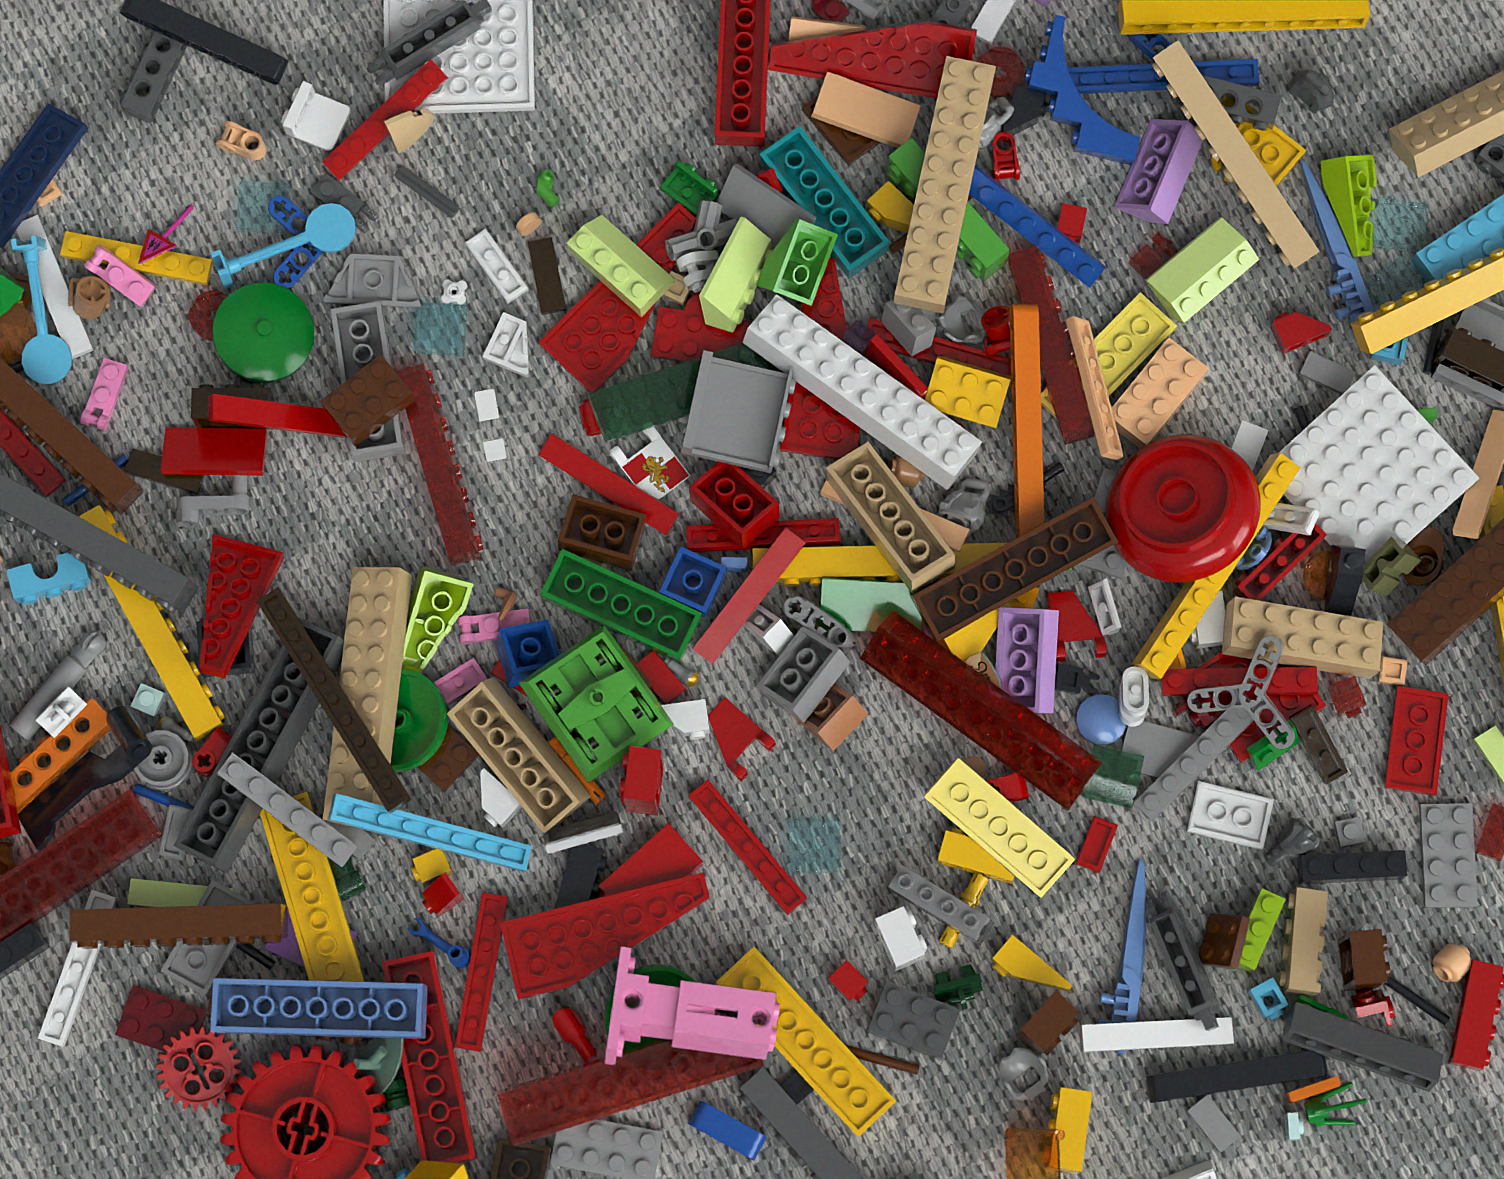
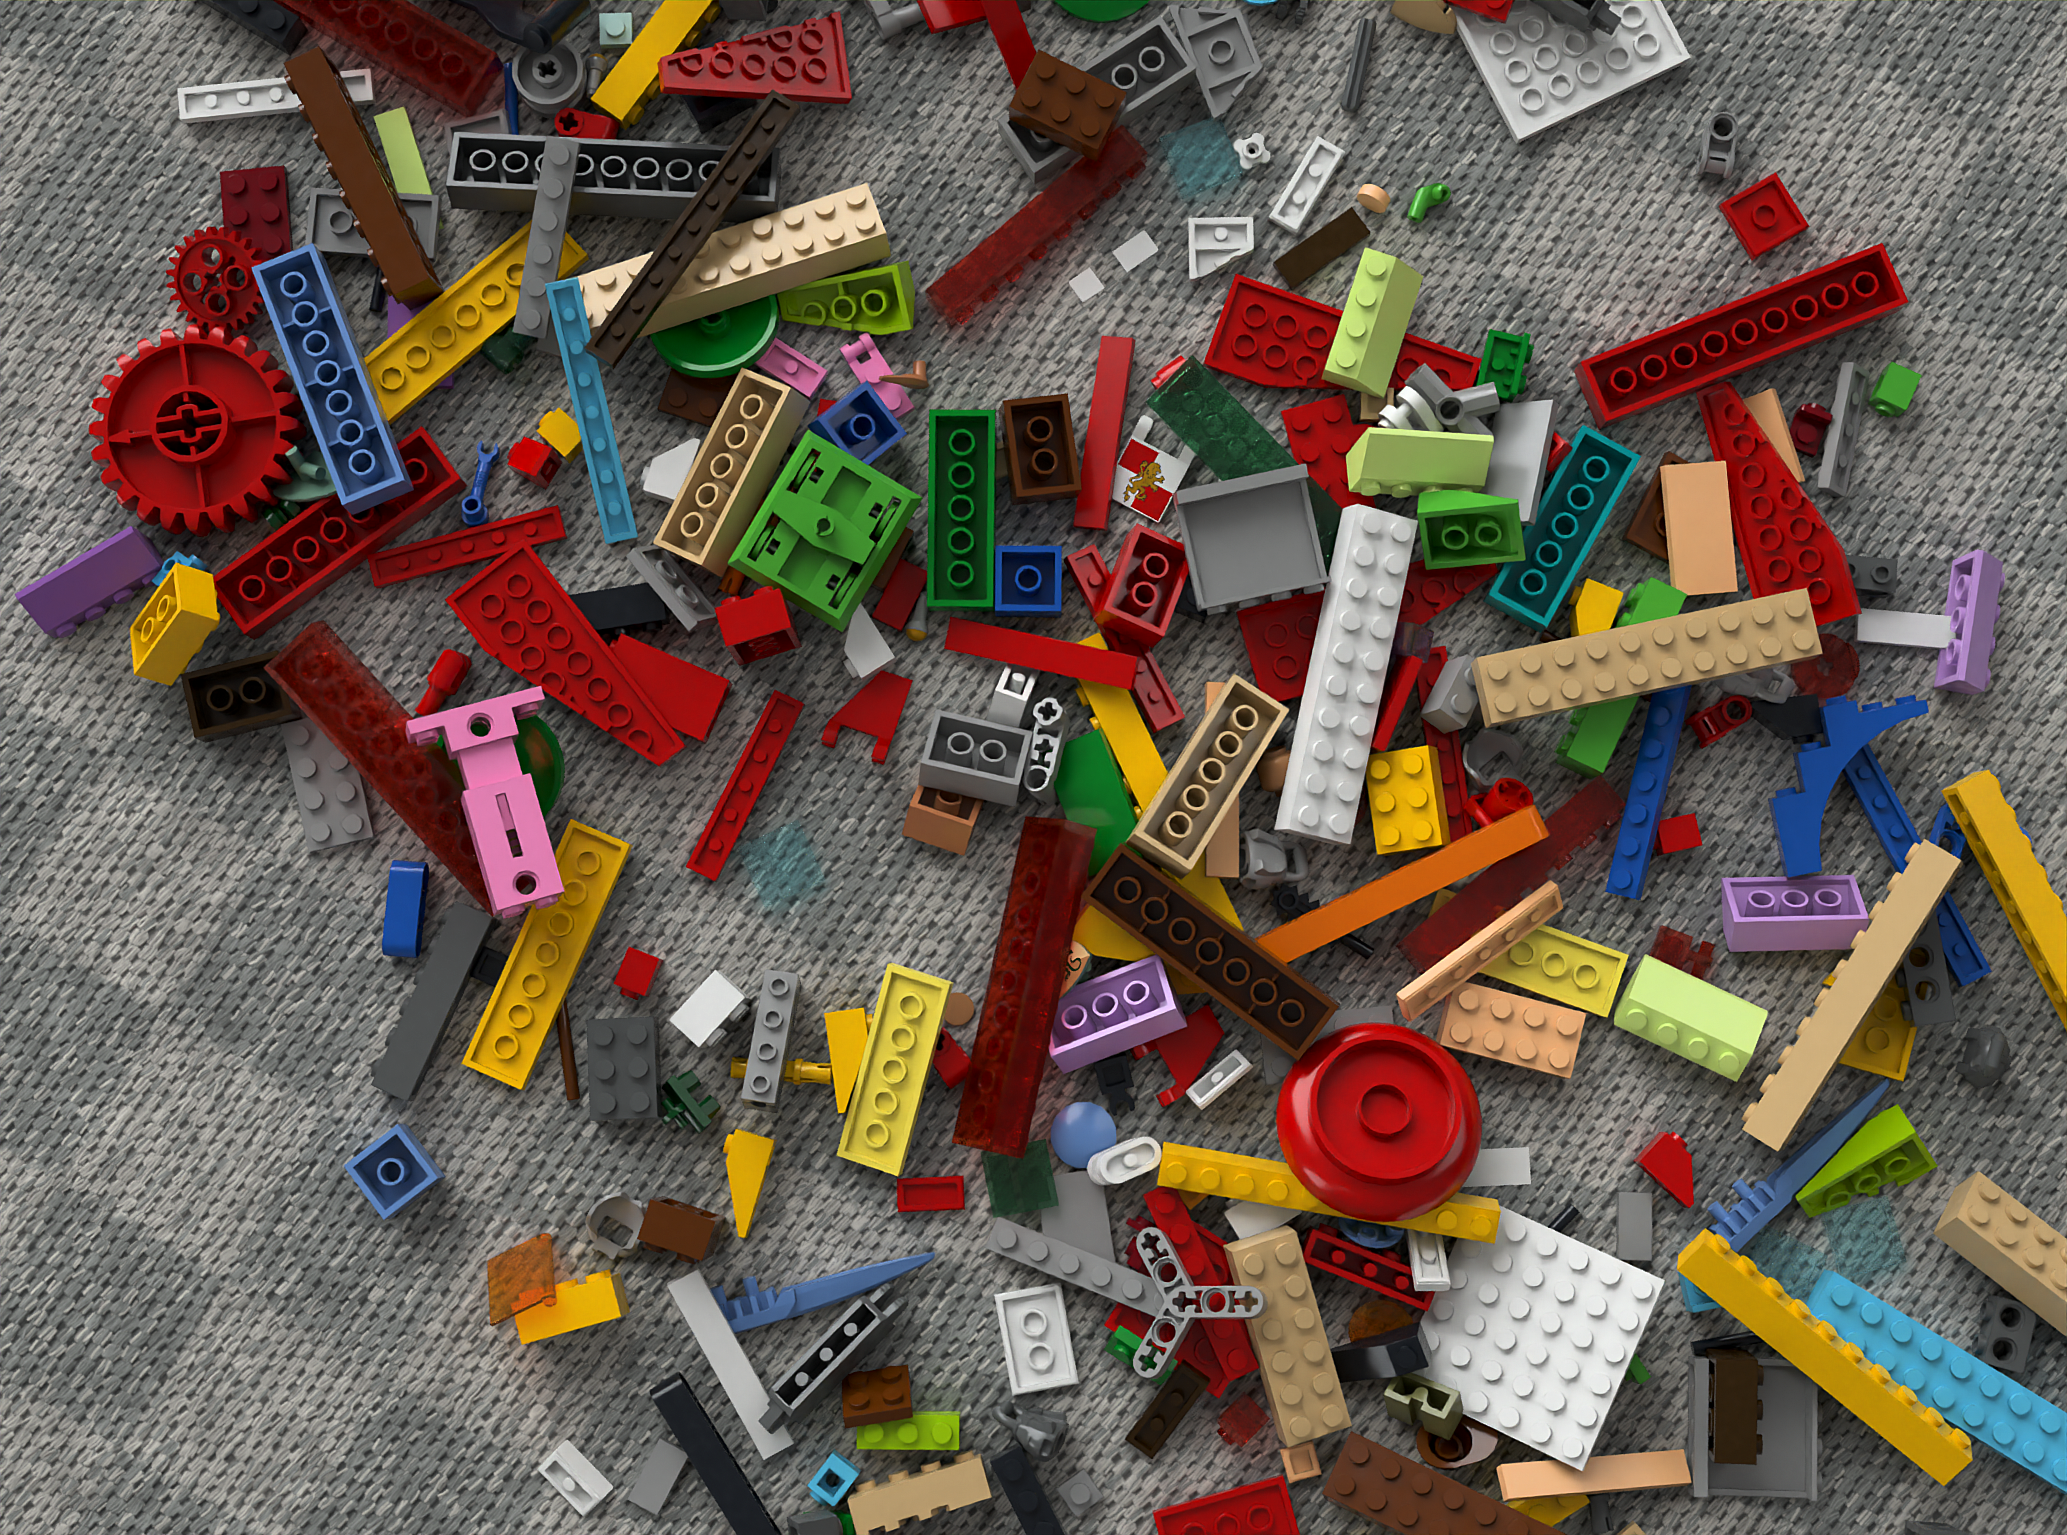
camera: 65 degrees right, 5 degrees up
(734, 564) = (1073, 620): medium blue tile -> none

